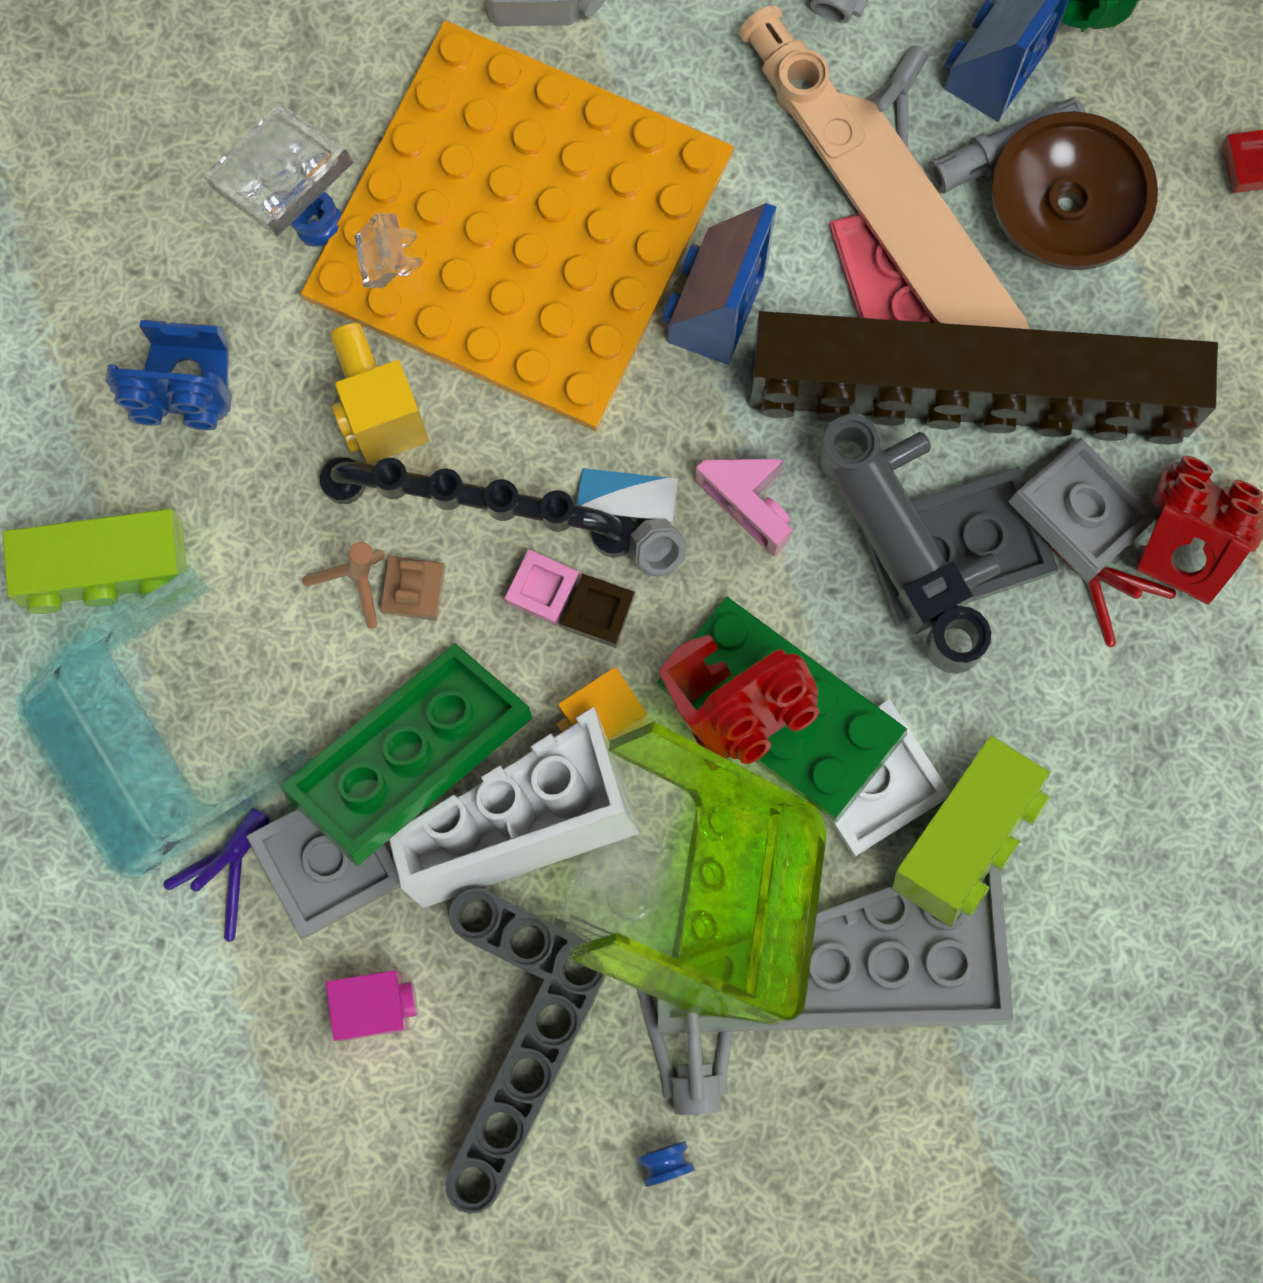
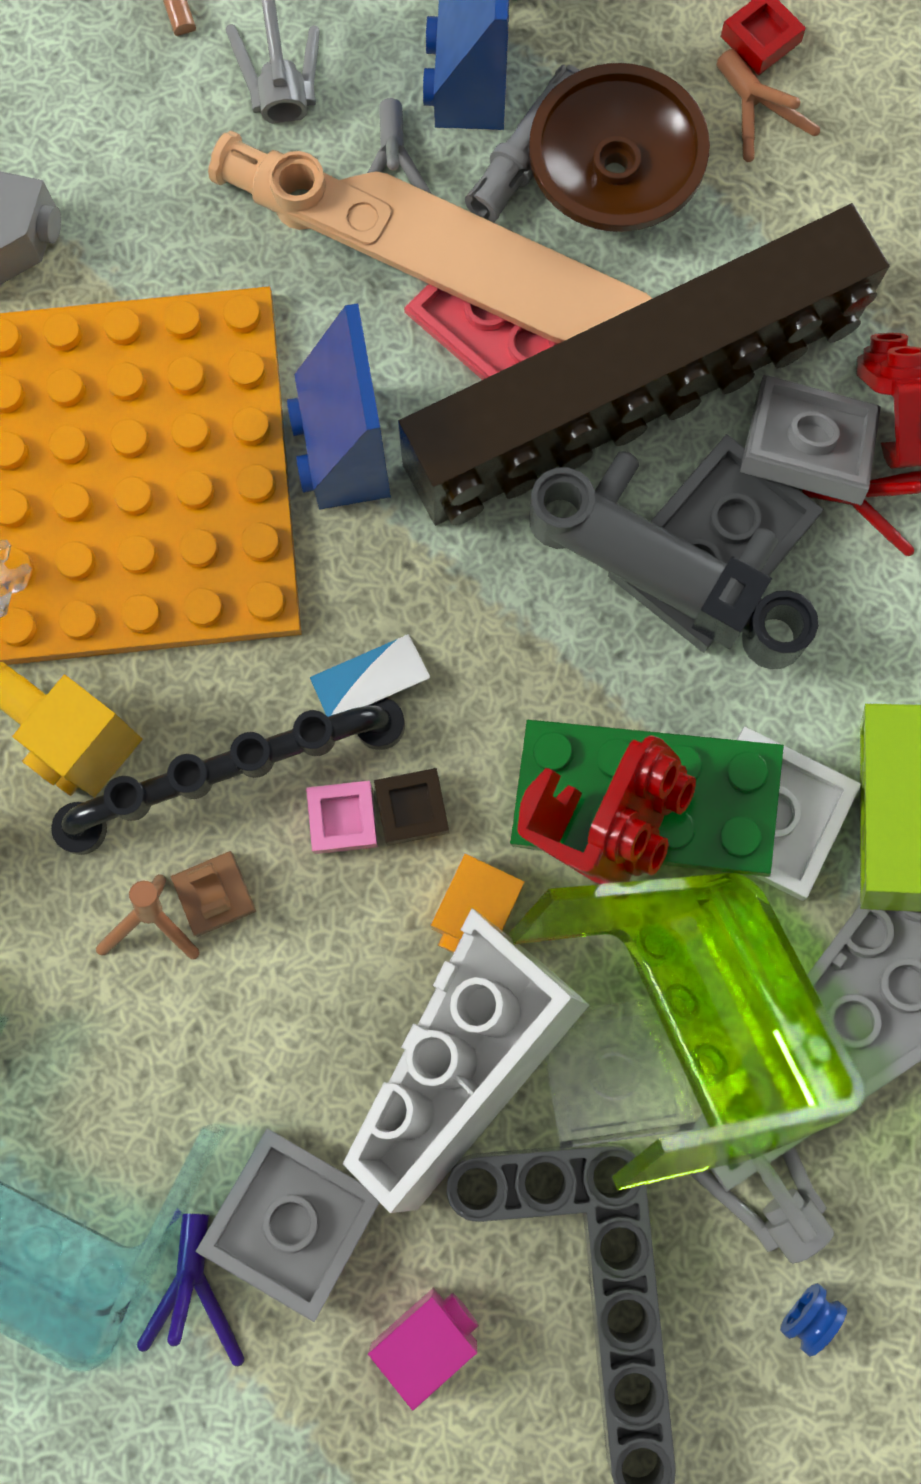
camera: 30 degrees left, 0 degrees up
(406, 753) = (308, 1069): green plate -> none
(657, 547) = (431, 711): light grey tile -> none
(736, 489) = (472, 611): bright pink slope -> none
(1218, 205) = (754, 92): none -> nougat plant

